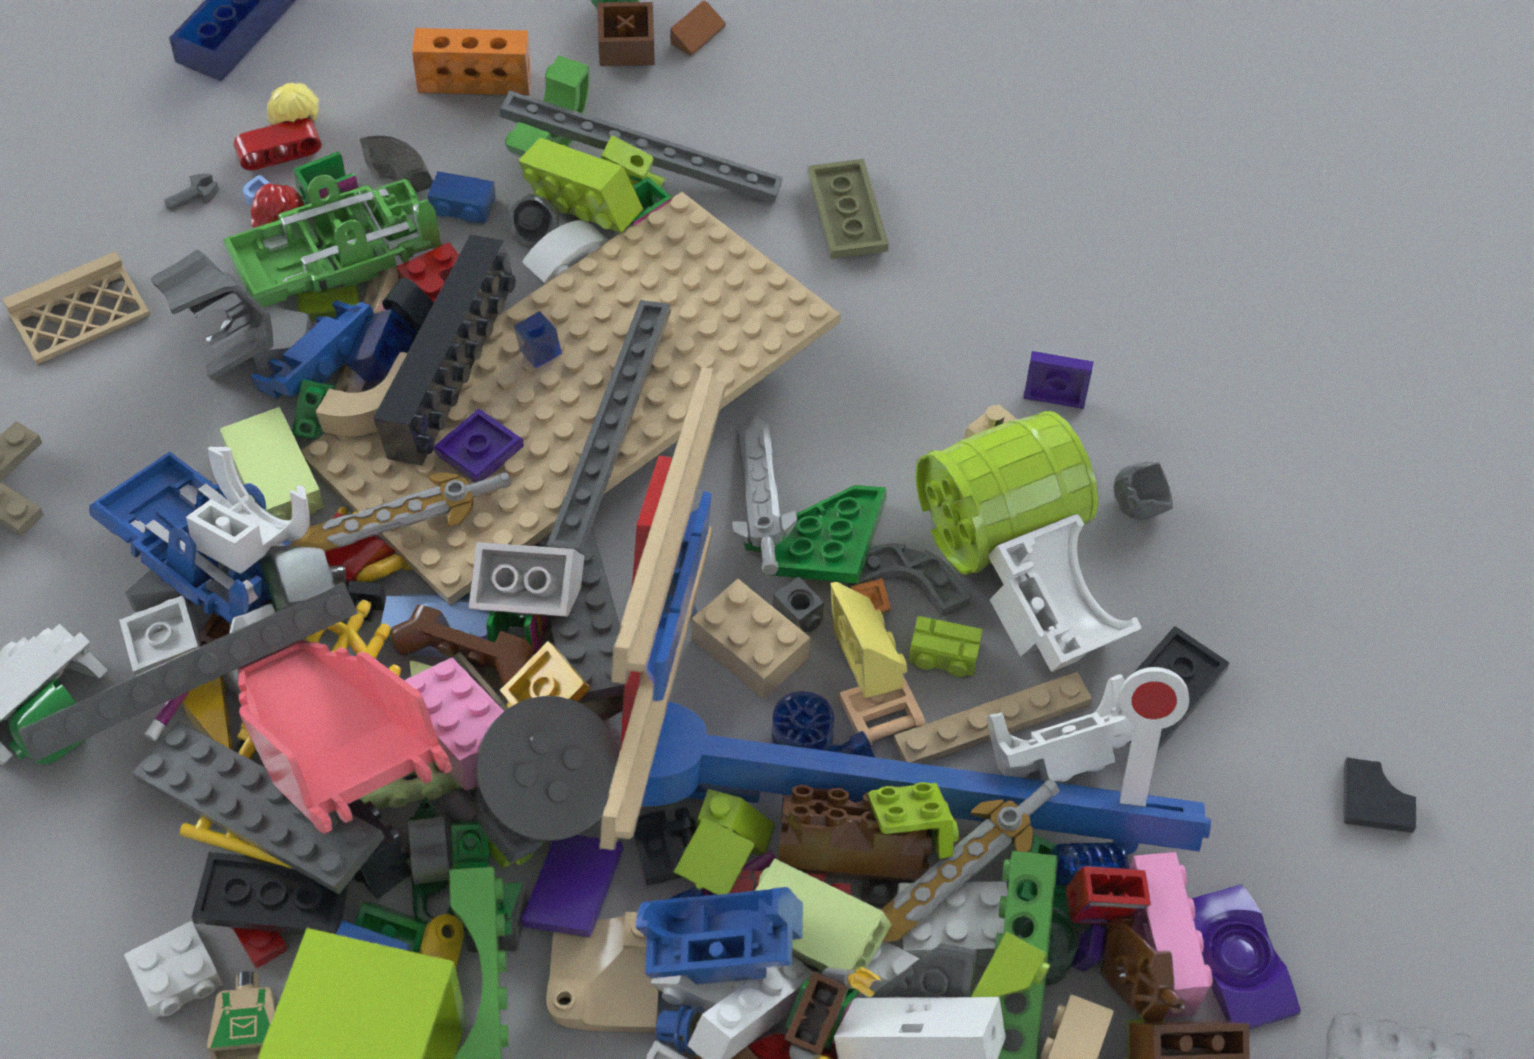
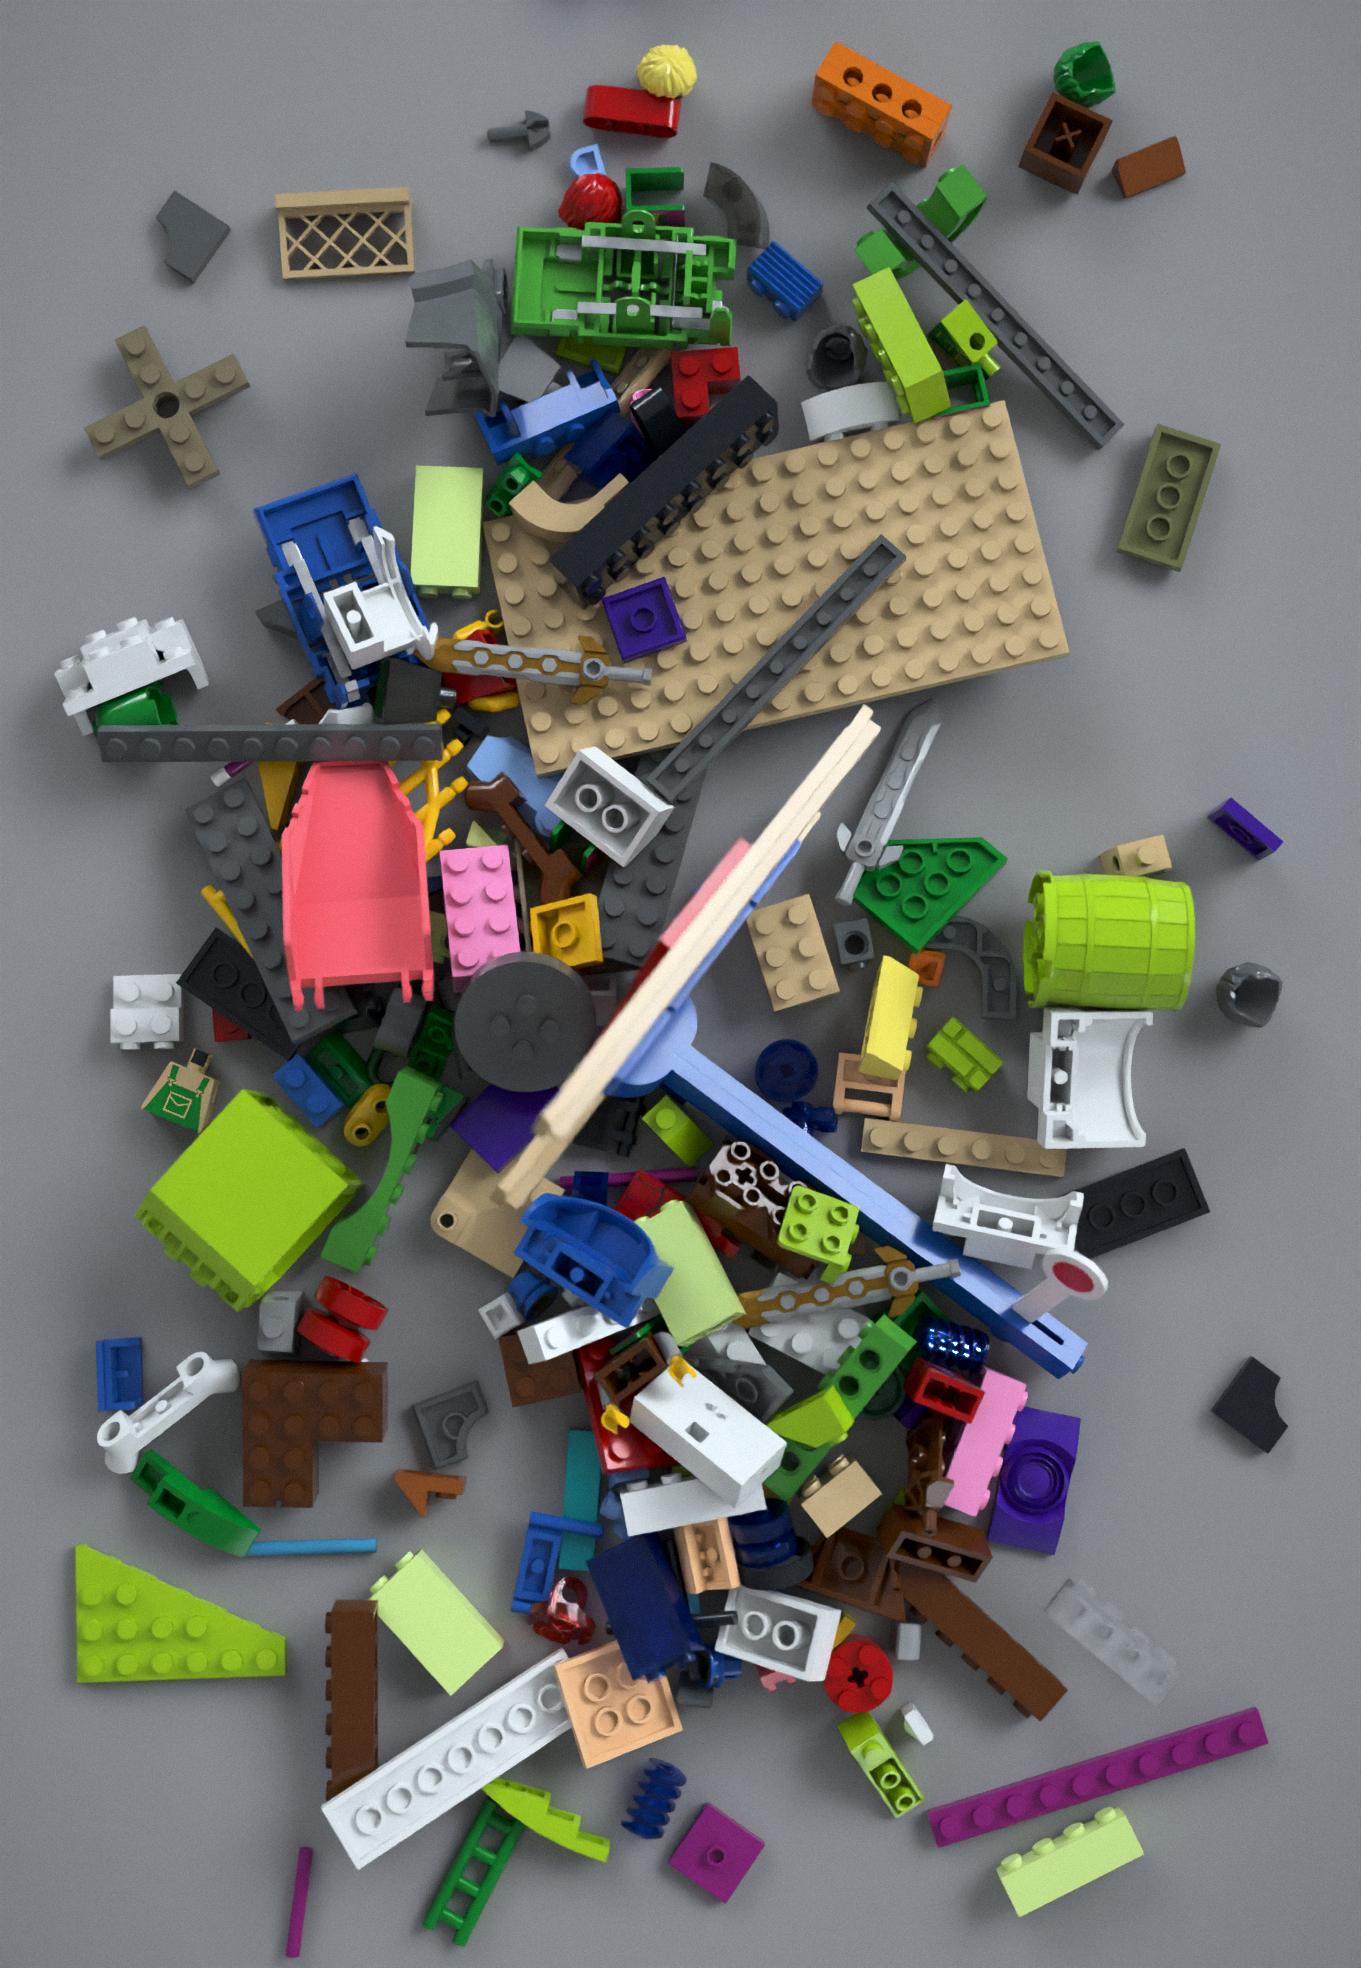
camera: 30 degrees right, 30 degrees up
(159, 634) = (267, 675): white plate -> none
(537, 339) = (758, 527): clear blue brick -> none
(714, 857) = (637, 1161): lime piece -> none

